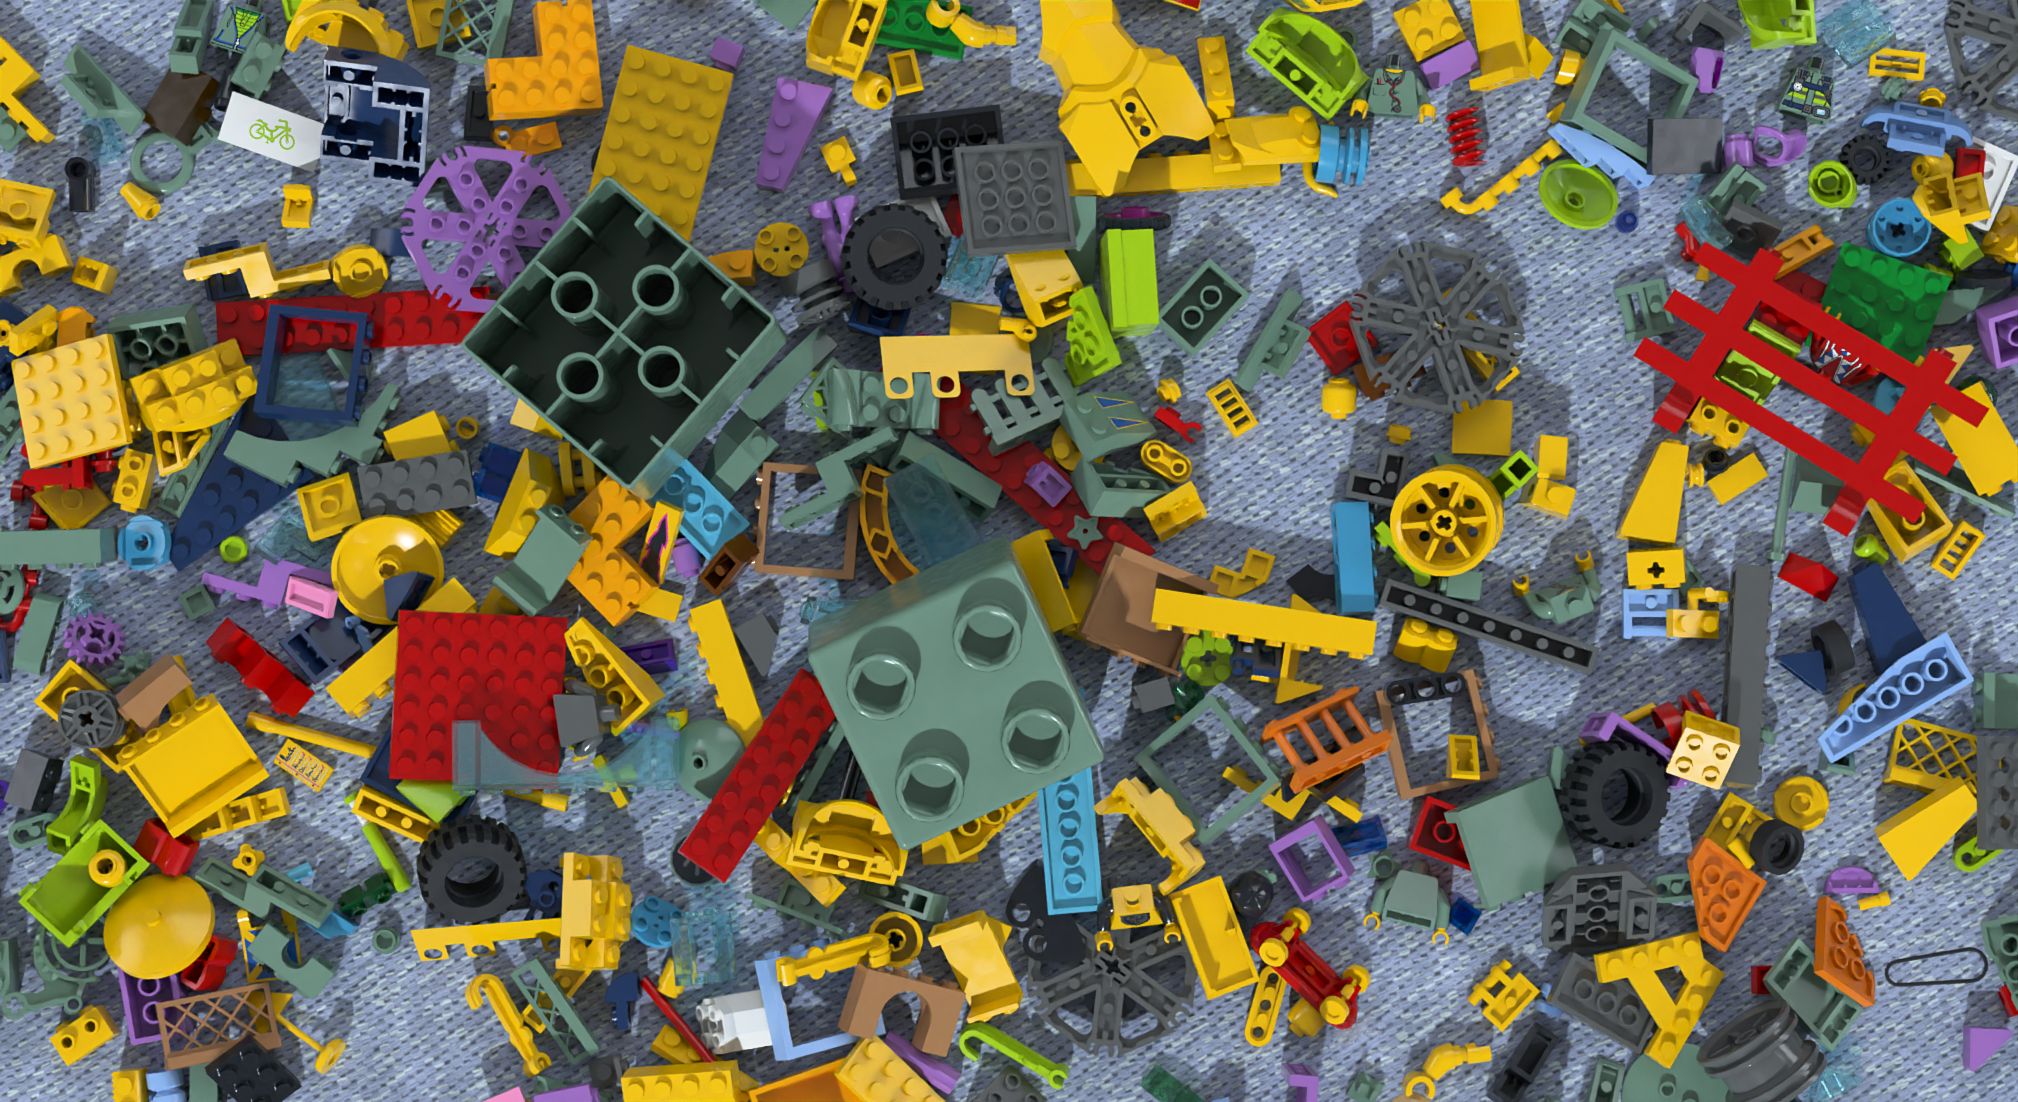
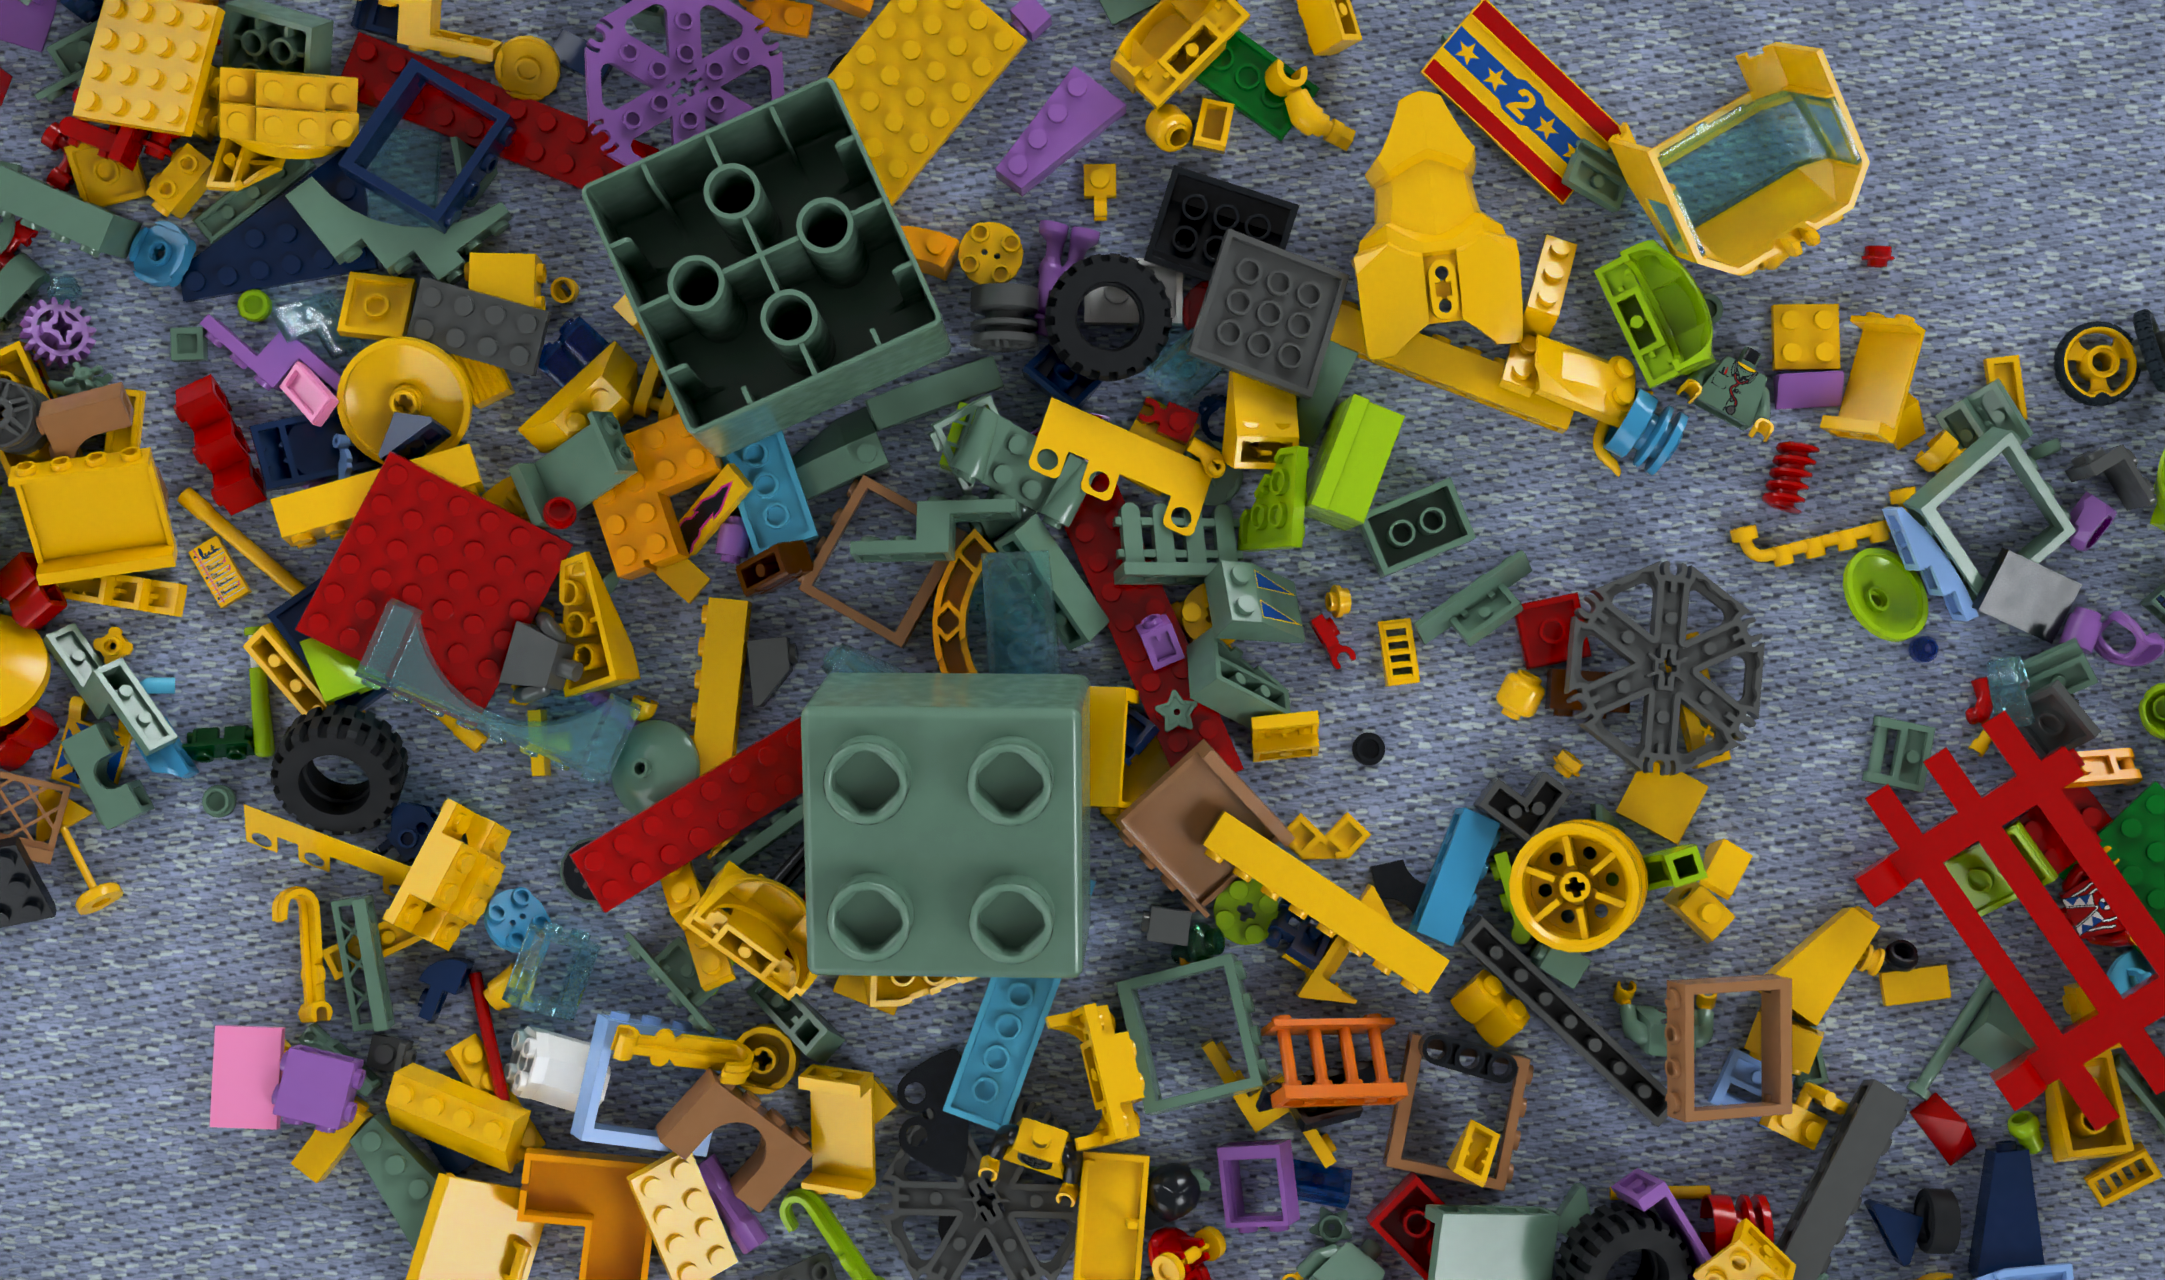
camera: 25 degrees right, 0 degrees up
(546, 598) = (559, 513): none -> red plate
(653, 656) = (648, 629): dark purple slope -> none
(980, 312) = (1174, 421): none -> red plate
(1135, 218) = (1390, 397): black wheel -> none
(1165, 462) = (1299, 677): yellow brick -> none
(1243, 492) = (1368, 749): none -> black plate
(1650, 574) = (1775, 1046): none -> medium nougat window
(1717, 423) = (1923, 916): yellow brick -> none

